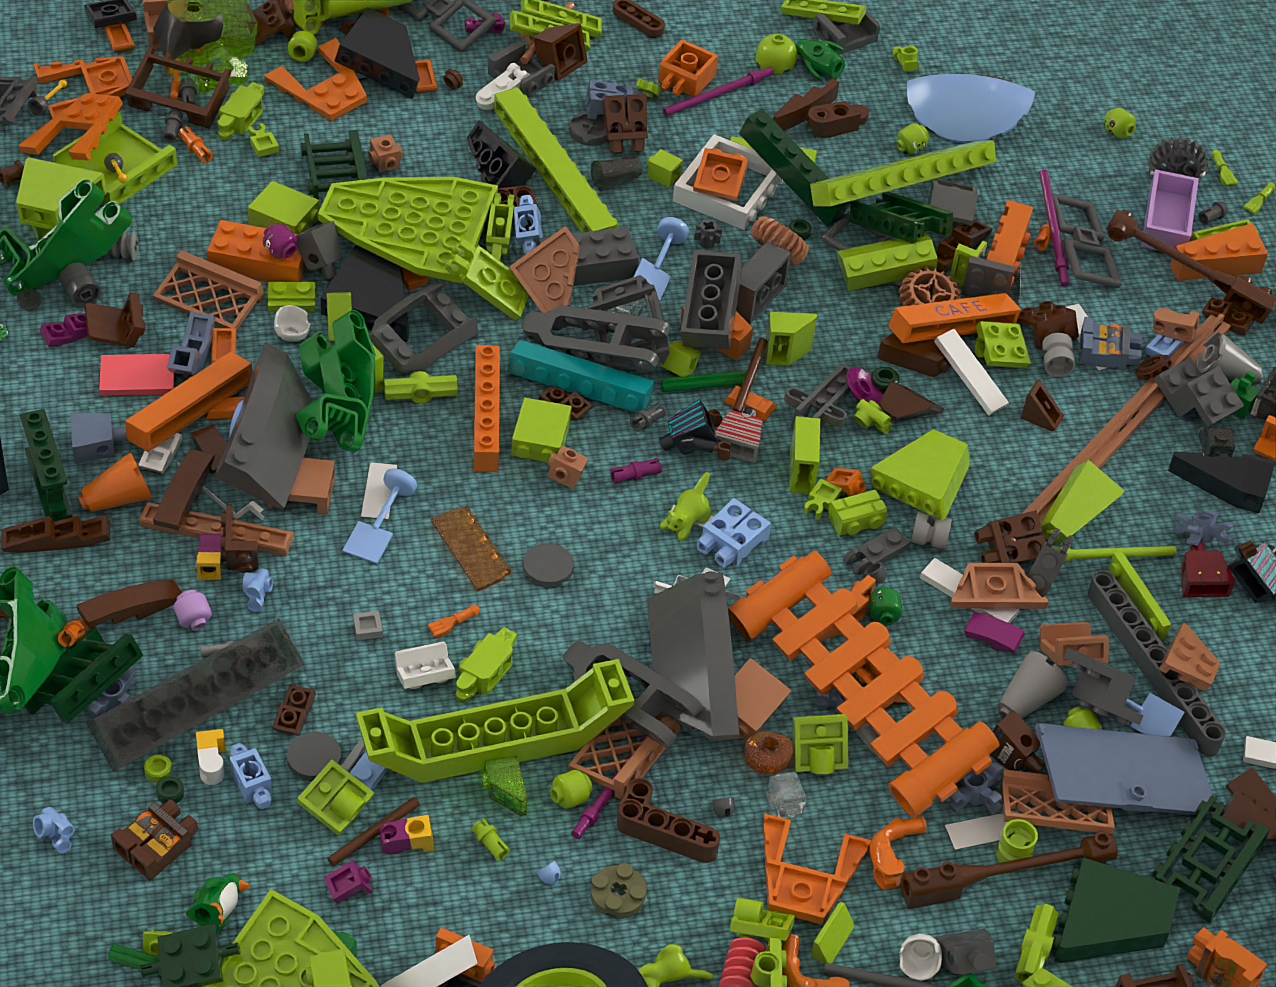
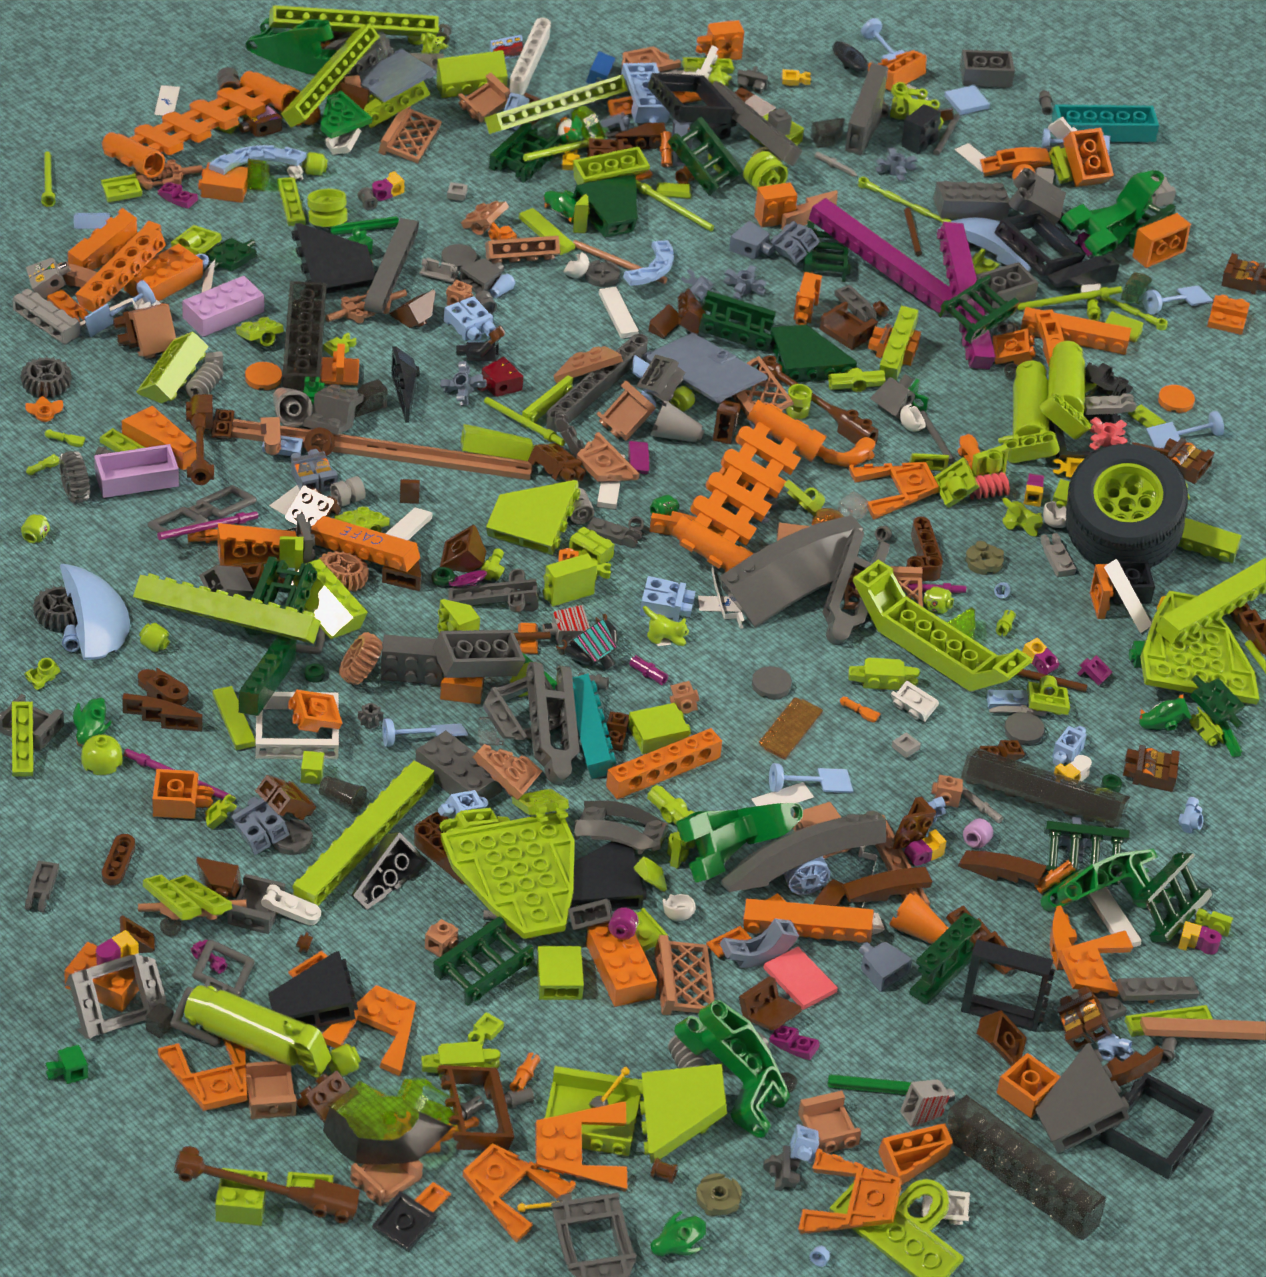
camera: 120 degrees left, 5 degrees down
(266, 610) = (949, 788): none -> nougat brick

